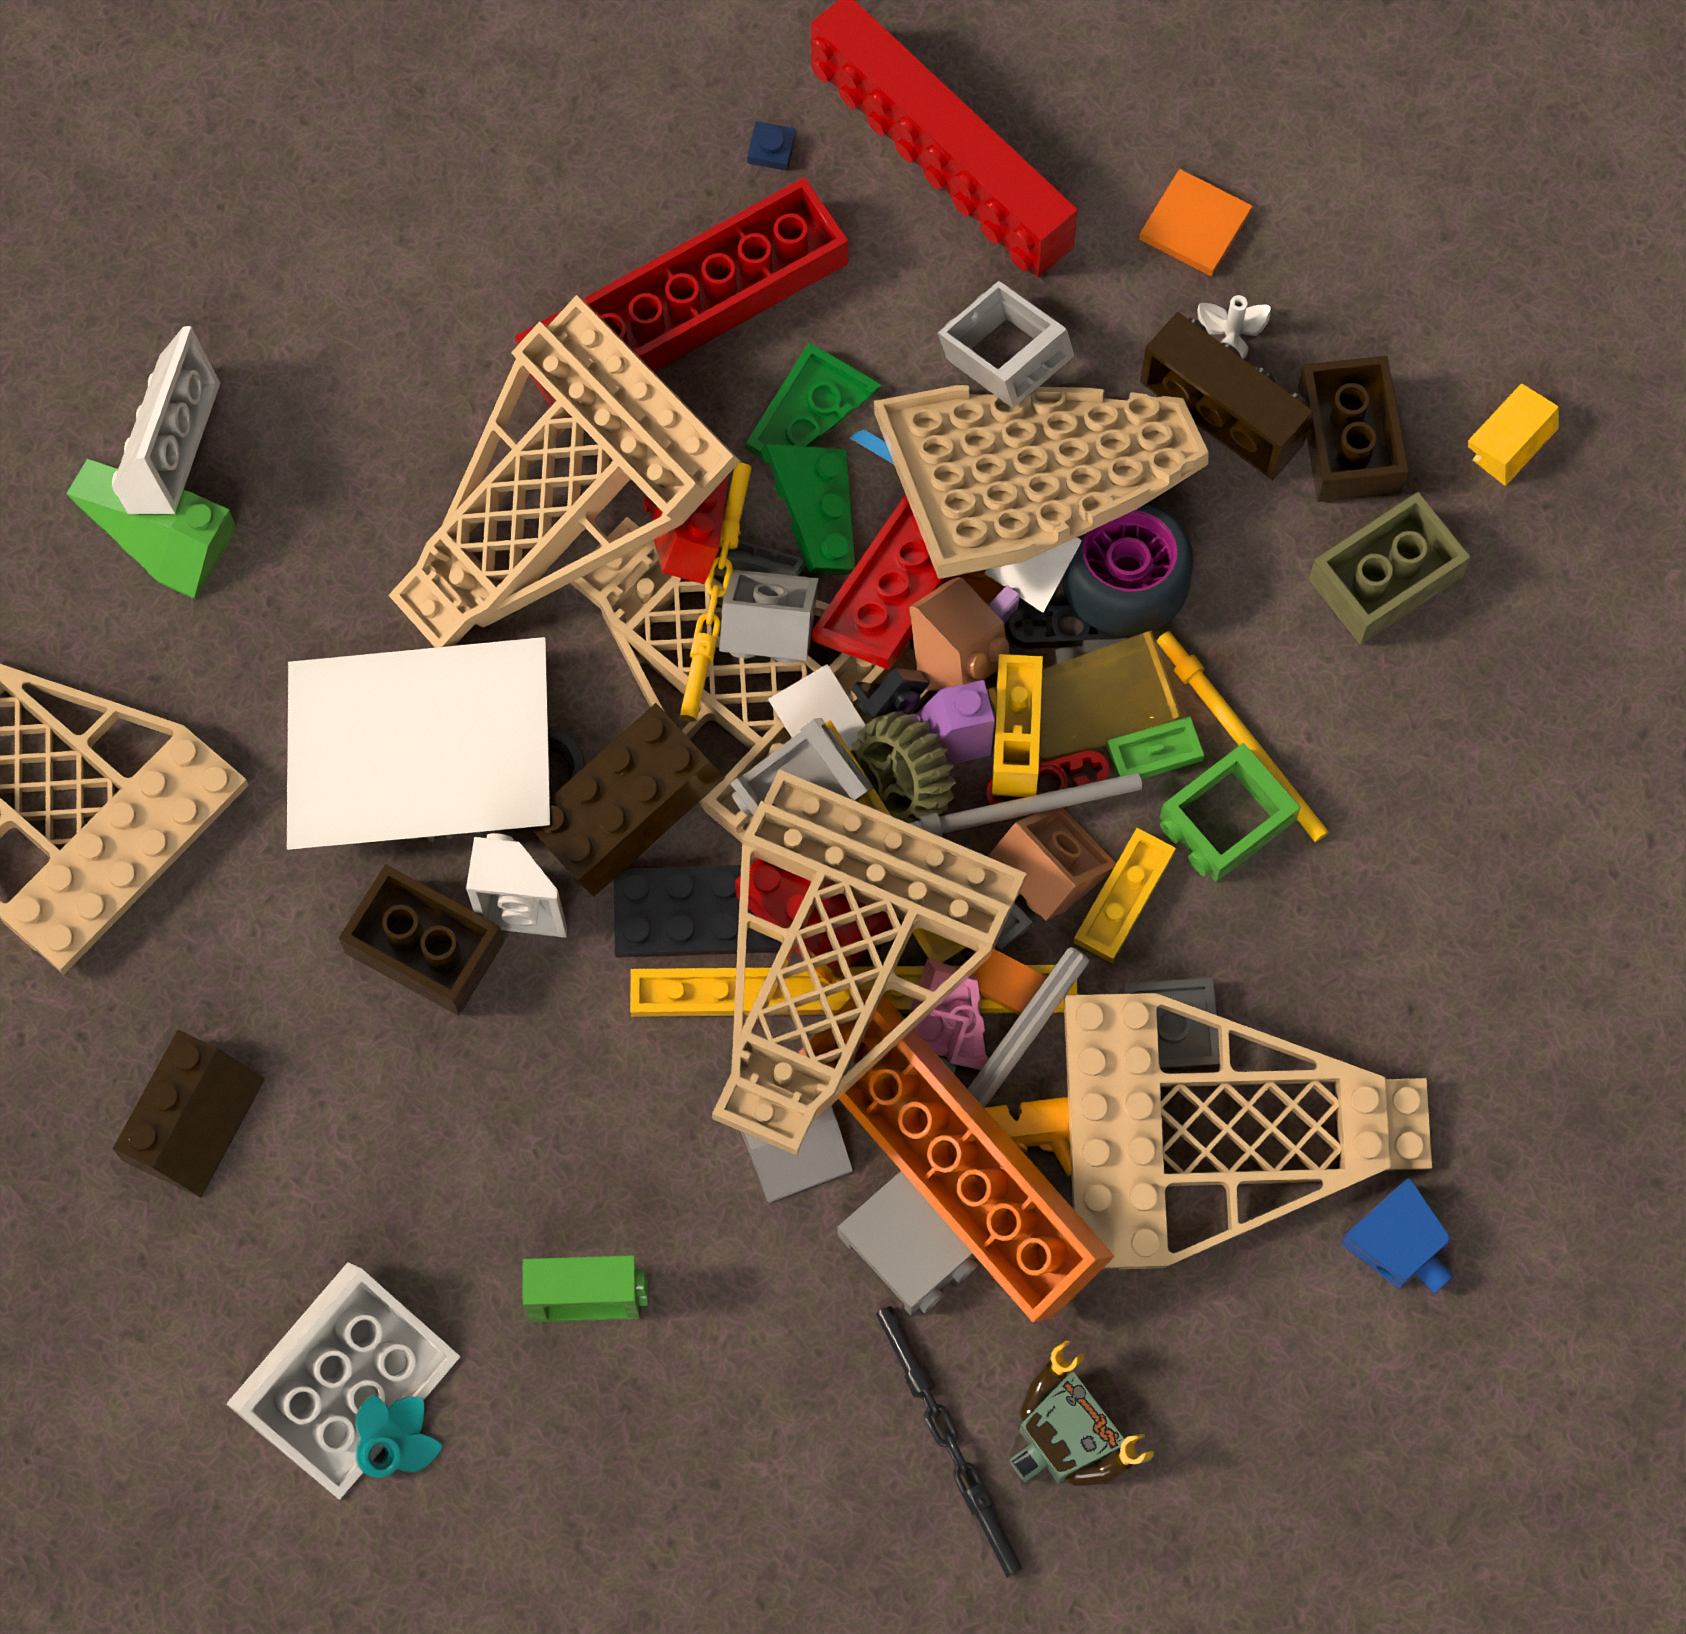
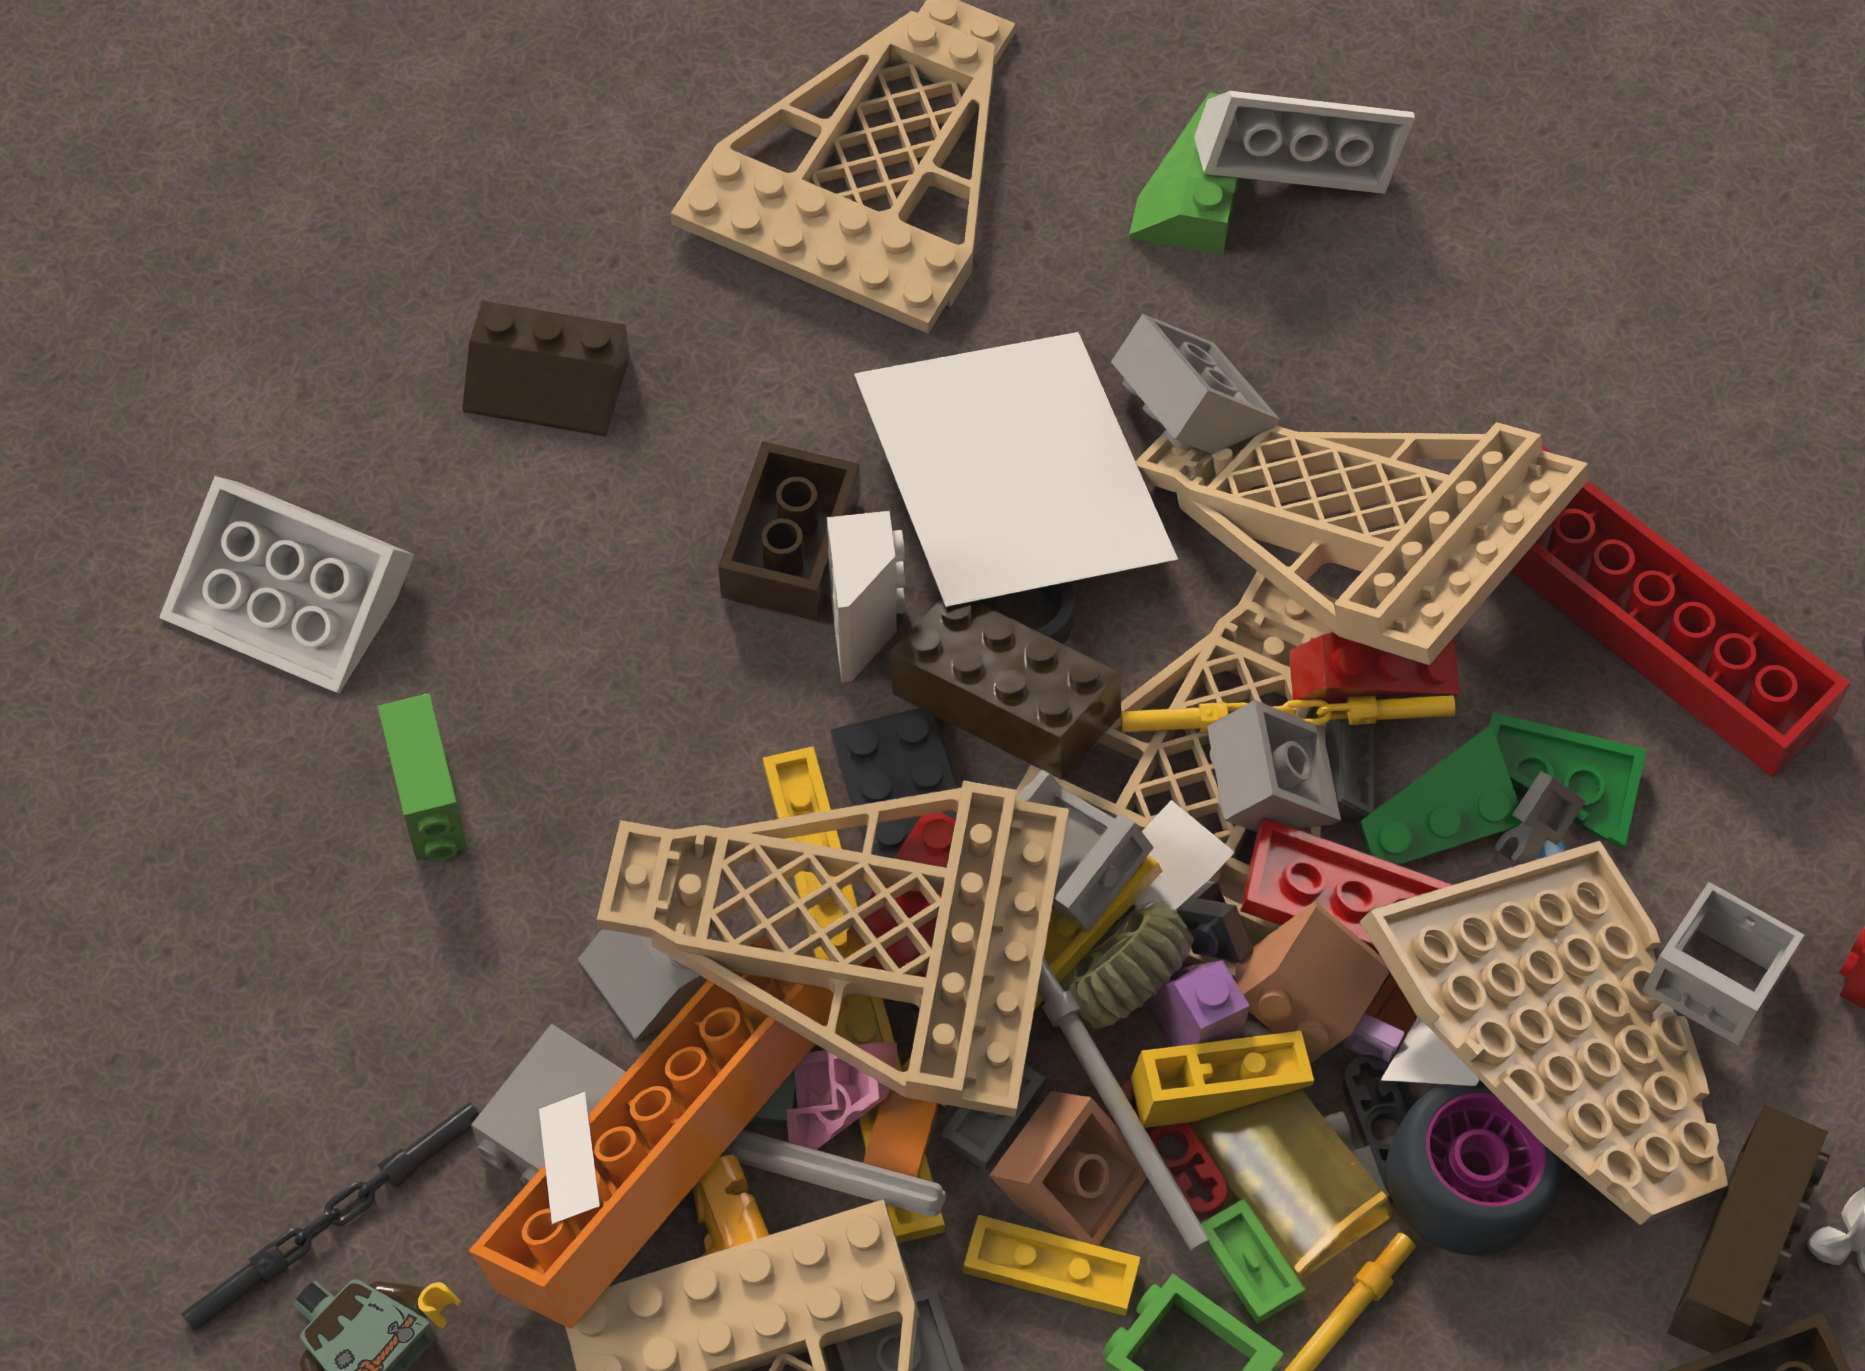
camera: 75 degrees right, 10 degrees down
(381, 583) = (1190, 387): none -> light grey slope
(399, 1434) = (239, 648): teal plate -> none
(848, 433) = (1544, 815): none -> dark grey plate
(973, 1228) = (568, 1158): none -> white sticker

